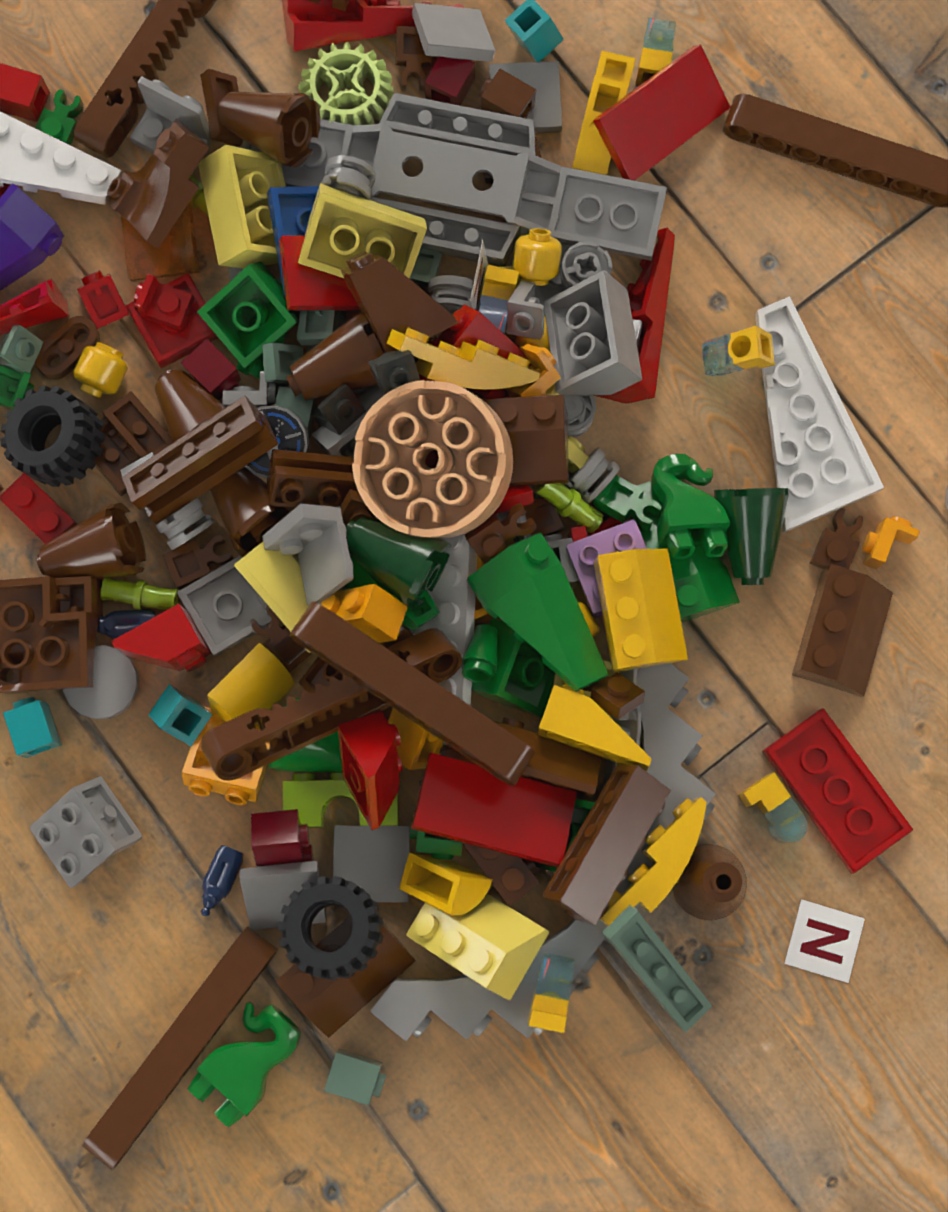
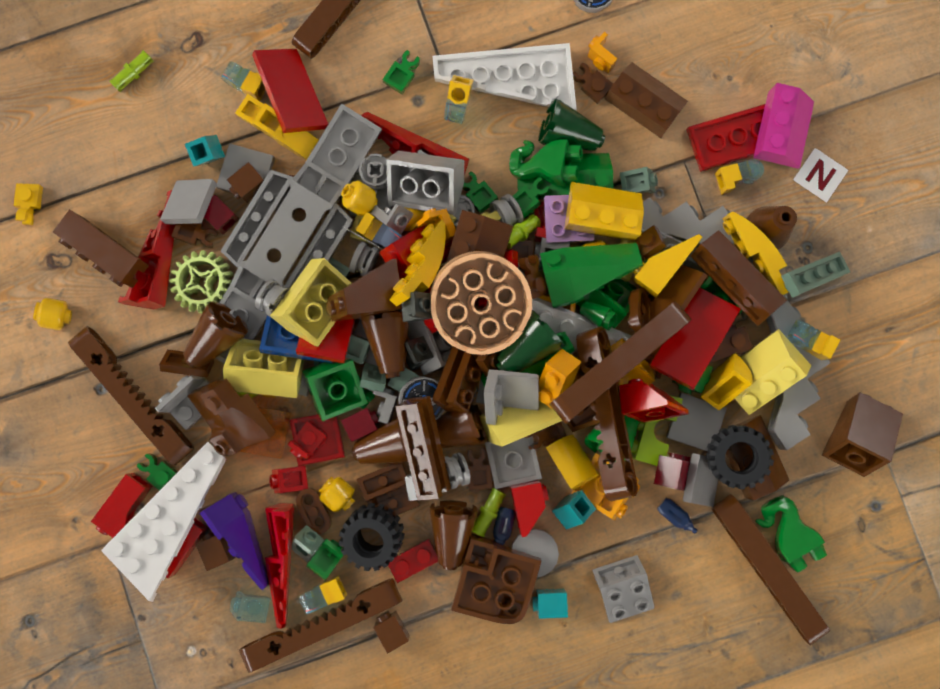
camera: 70 degrees left, 5 degrees up
(355, 1077) = (819, 471): sand green brick -> none
(435, 1131) = (864, 435): none -> reddish brown slope
(514, 710) = (639, 309): none -> reddish brown plate
(608, 430) = (479, 194): none -> green plate
(711, 659) = (639, 180): none -> sand green bracket
(743, 261) = (400, 75): none -> green plate
(876, 855) = (784, 126): none -> dark pink slope

